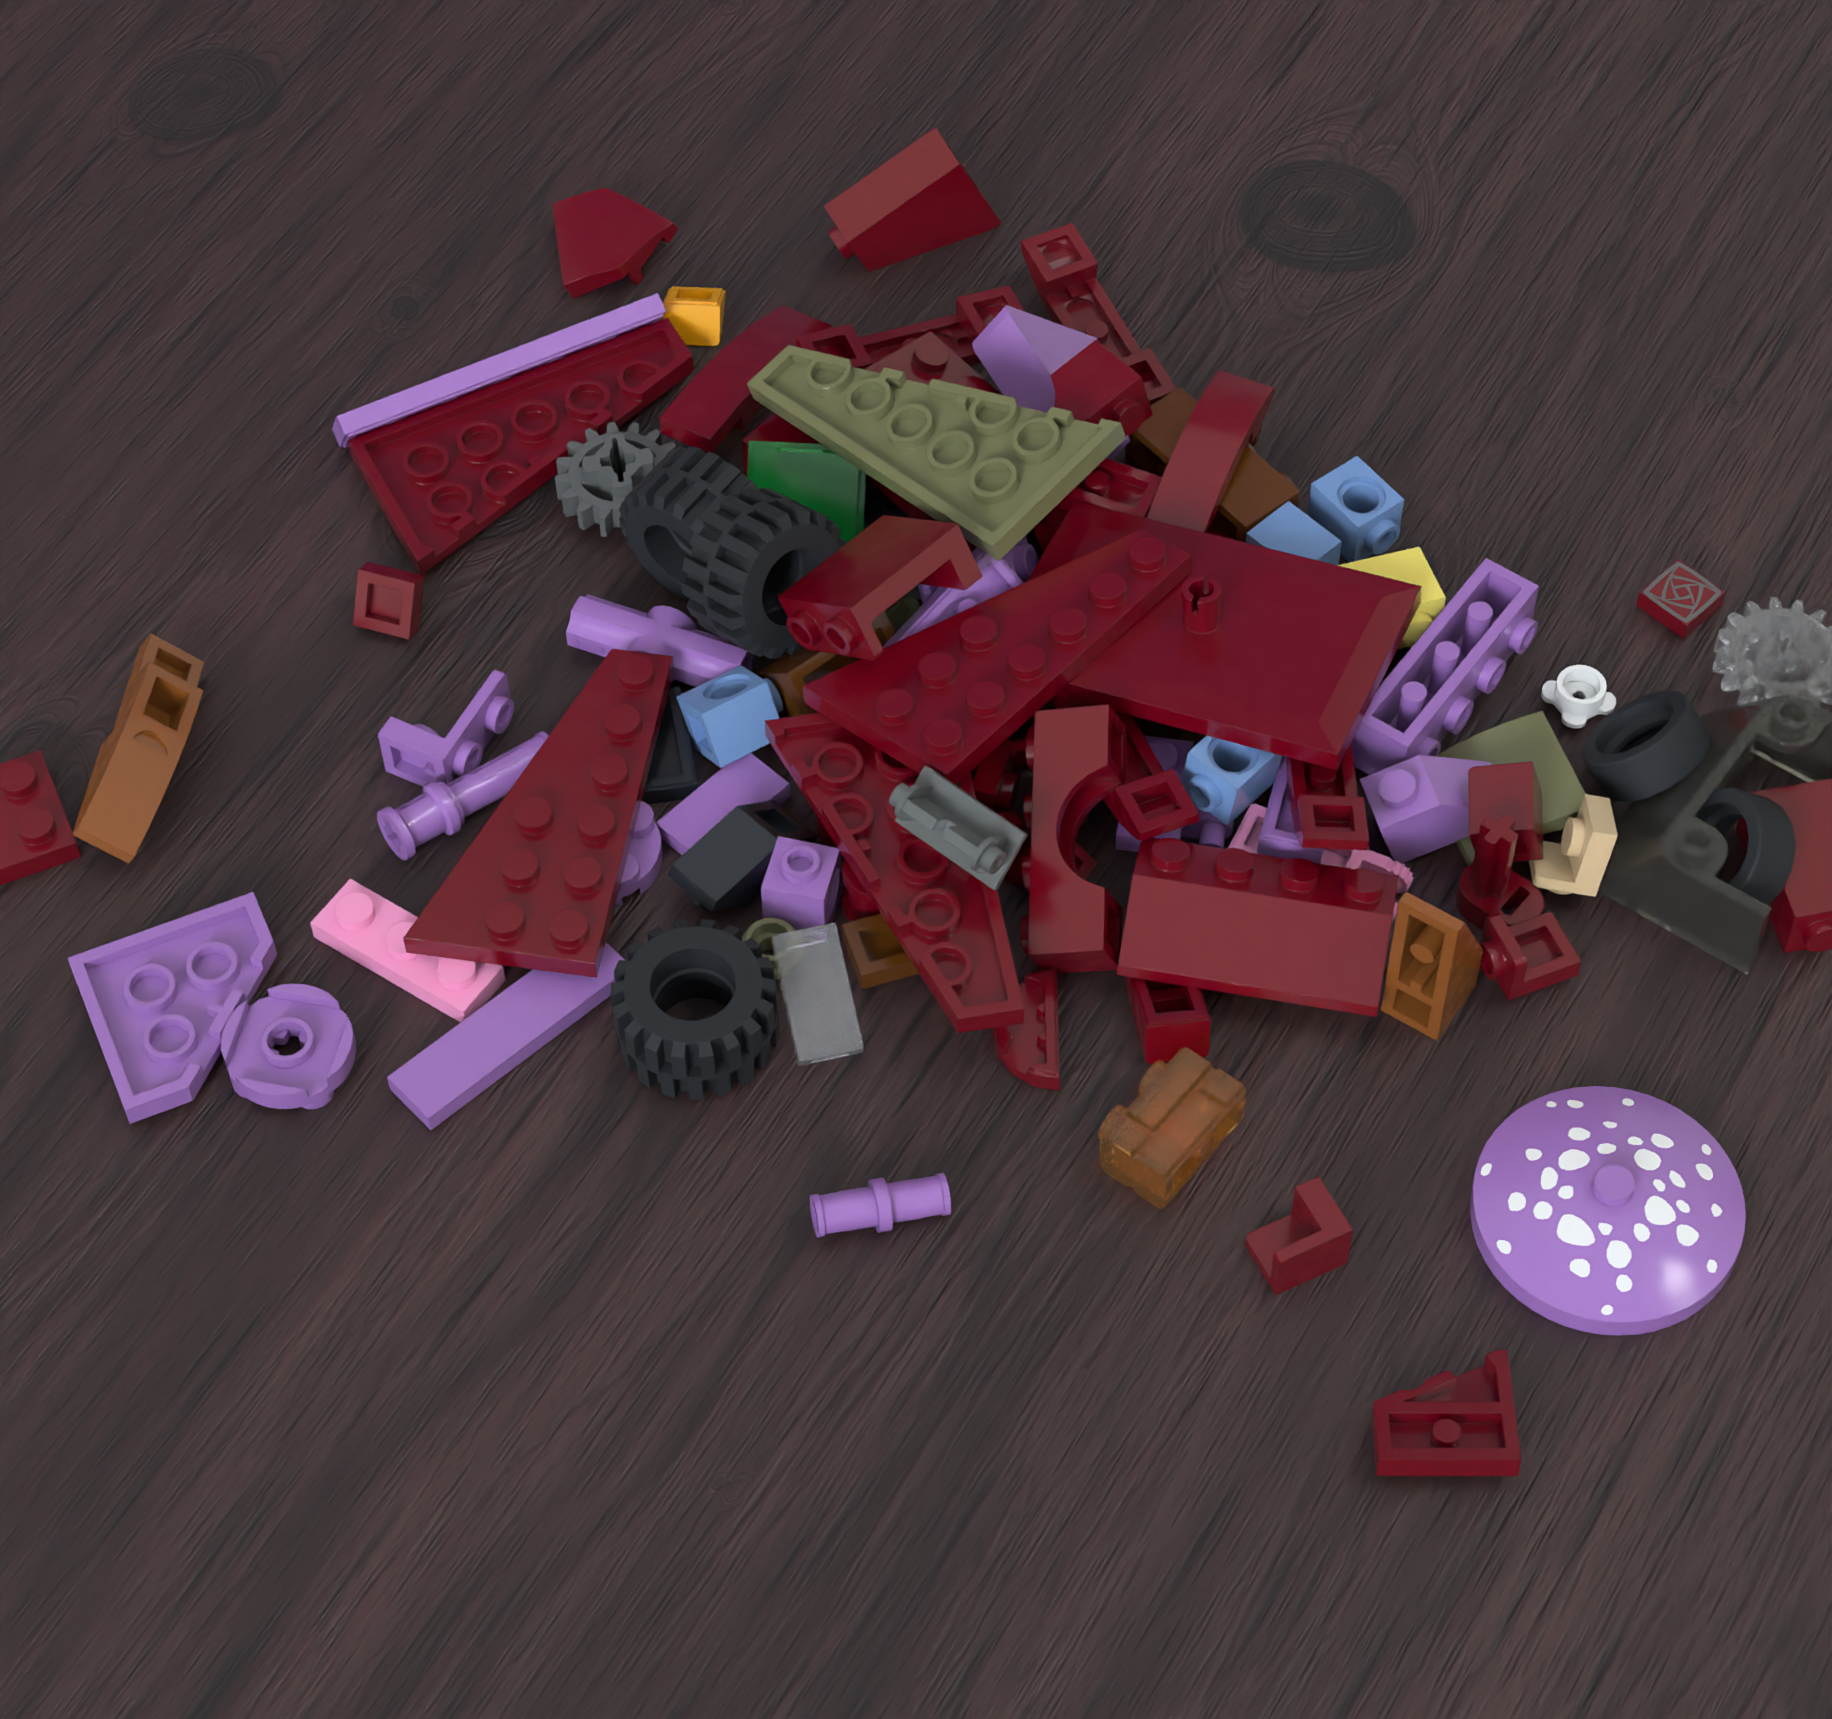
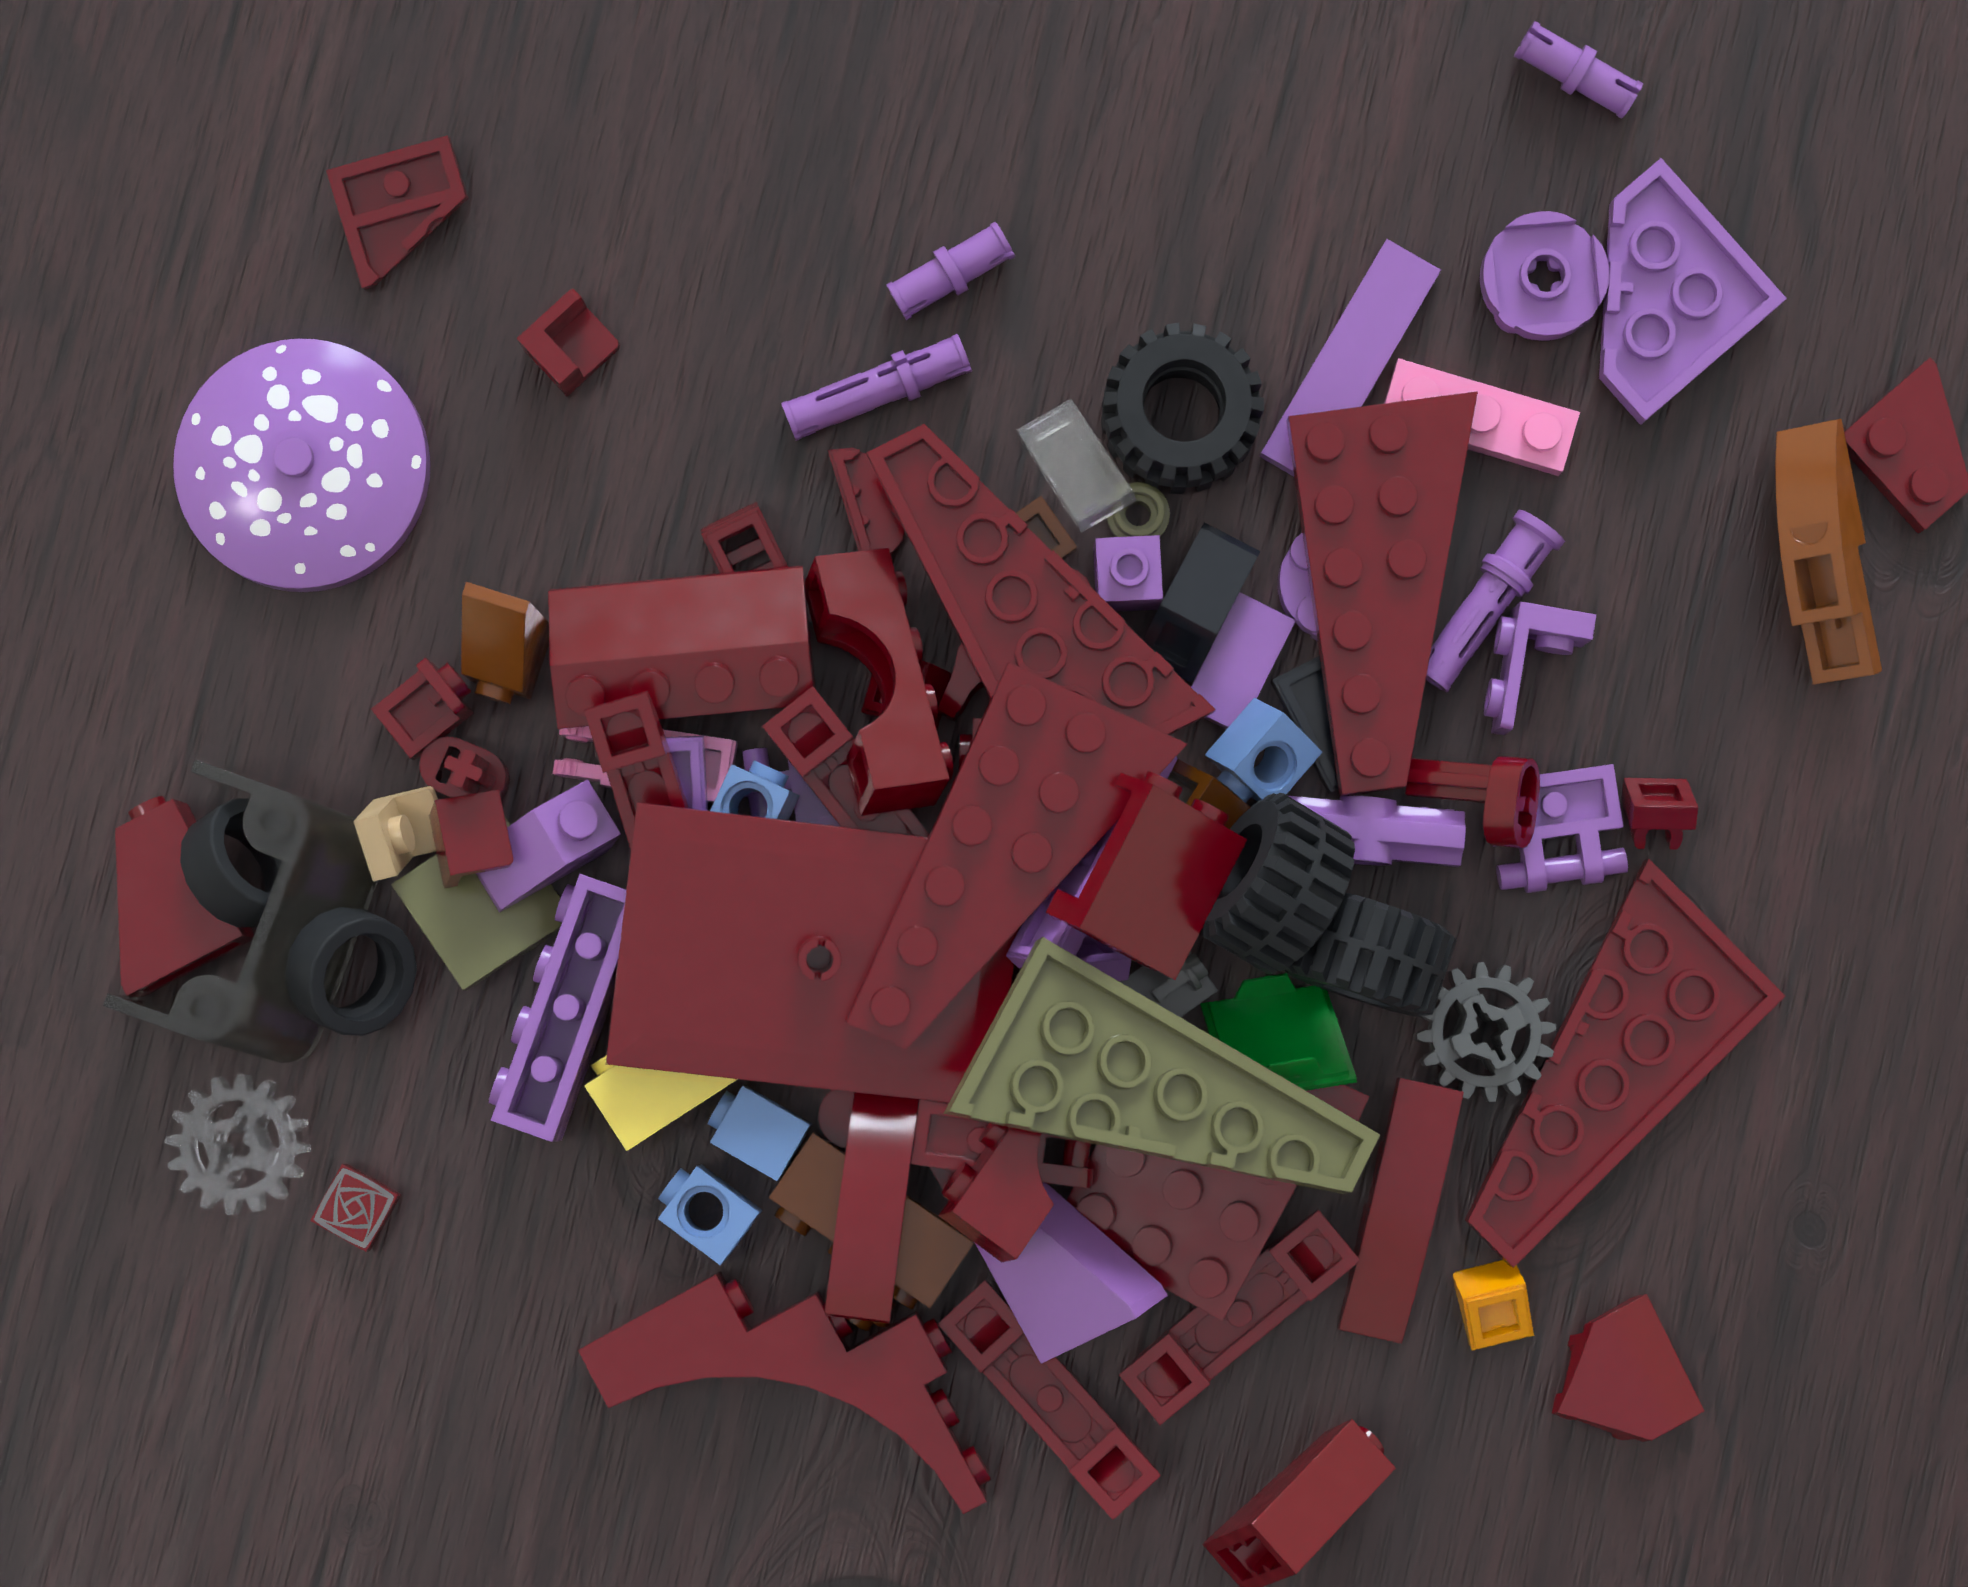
camera: 160 degrees right, 30 degrees up
(165, 1222) = (1578, 69): none -> medium lavender pin
(485, 625) = (1569, 805): none -> medium lavender plate
(497, 368) = (1665, 1143): medium lavender tile -> none
(521, 624) = (1506, 787): none -> dark red piece
(911, 1123) = (887, 383): none -> medium lavender pin
(958, 826) = (956, 602): dark grey hinge -> none
(1170, 1126) = (711, 421): clear orange brick -> none
(1391, 428) = (884, 1375): none -> dark red arch
(1579, 682) = (417, 1044): white plate -> none

